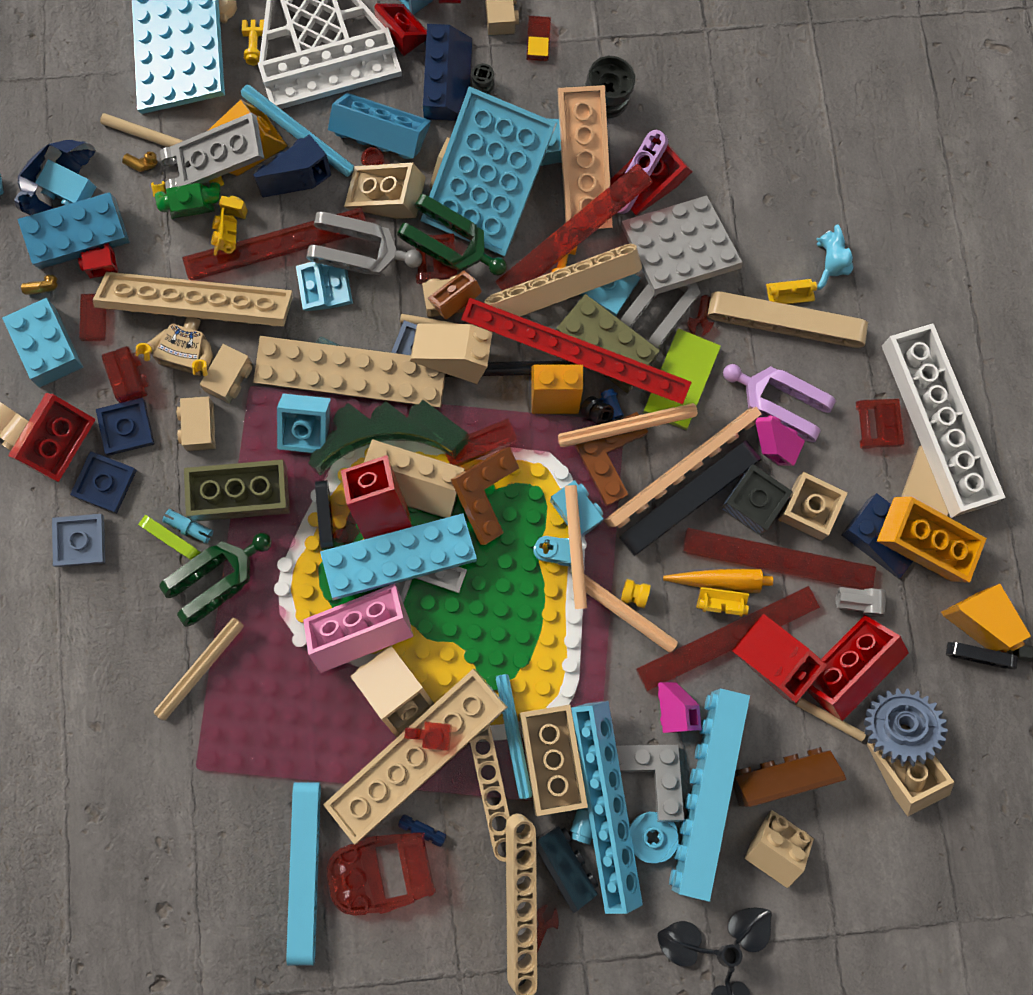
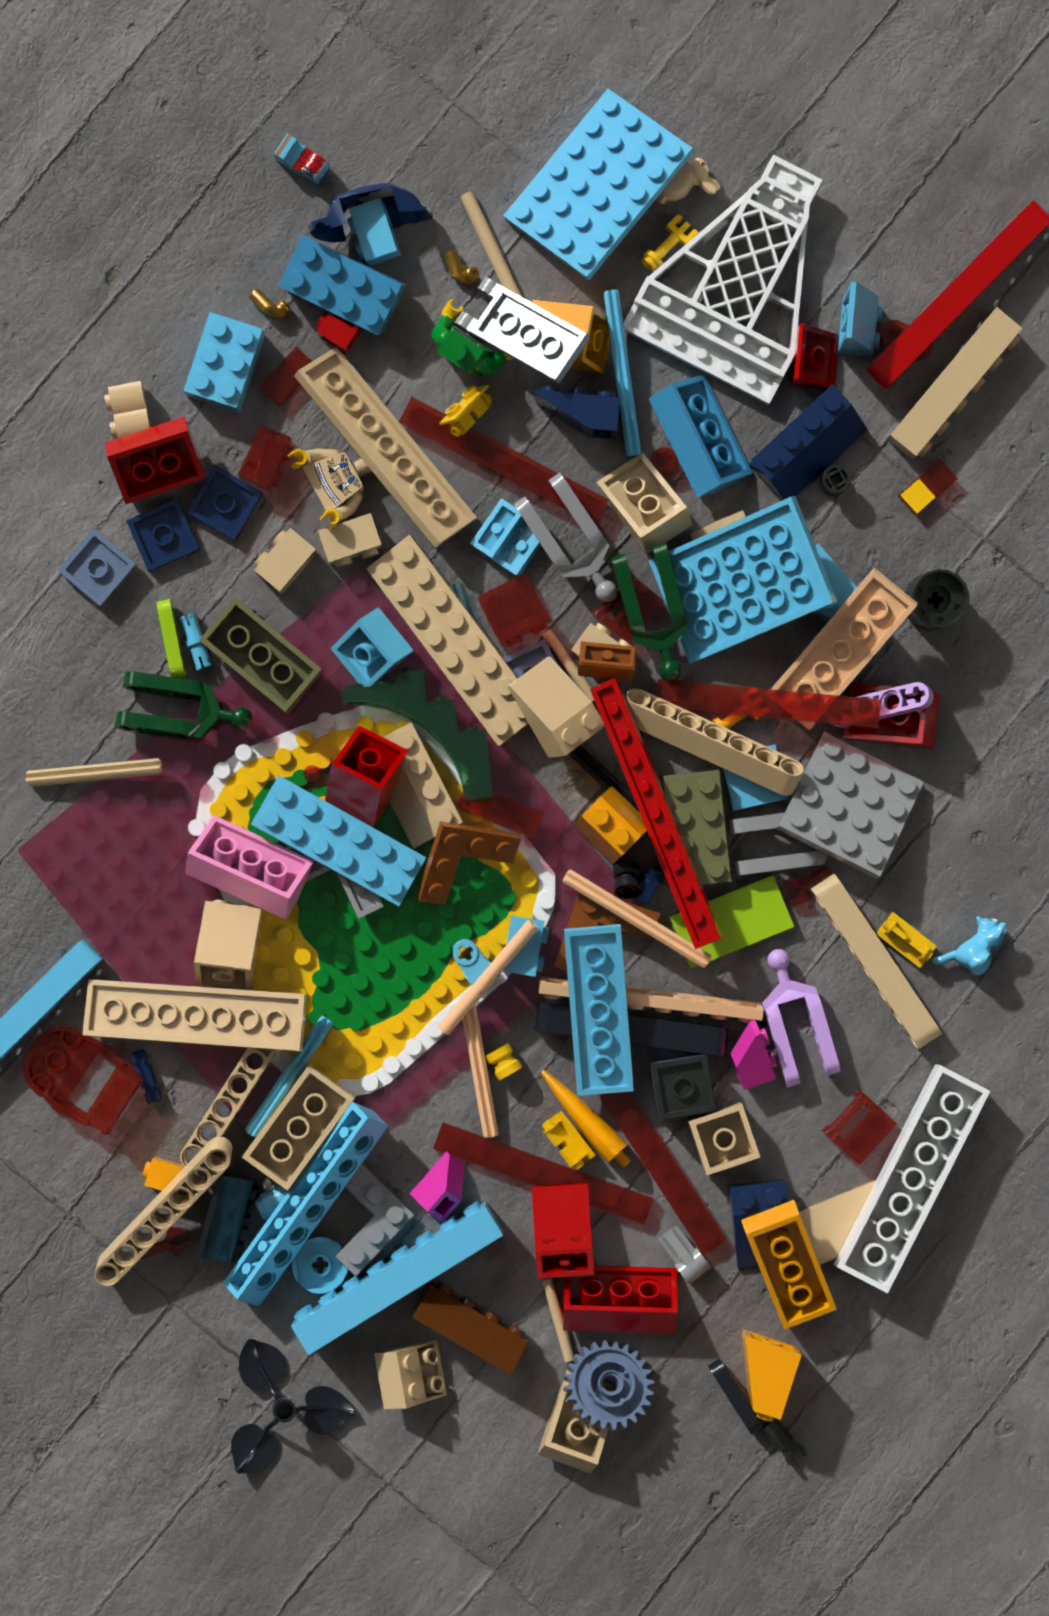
camera: 55 degrees right, 10 degrees up
(233, 206) = (500, 390): yellow plate -> none
(324, 514) = (313, 745): black beam -> none
(370, 322) = (514, 611): none -> clear red bracket
(433, 735) = (223, 1015): clear red plate -> none
(493, 883) = (160, 1173): none -> light orange brick
(662, 499) = (598, 1009): none -> medium azure plate

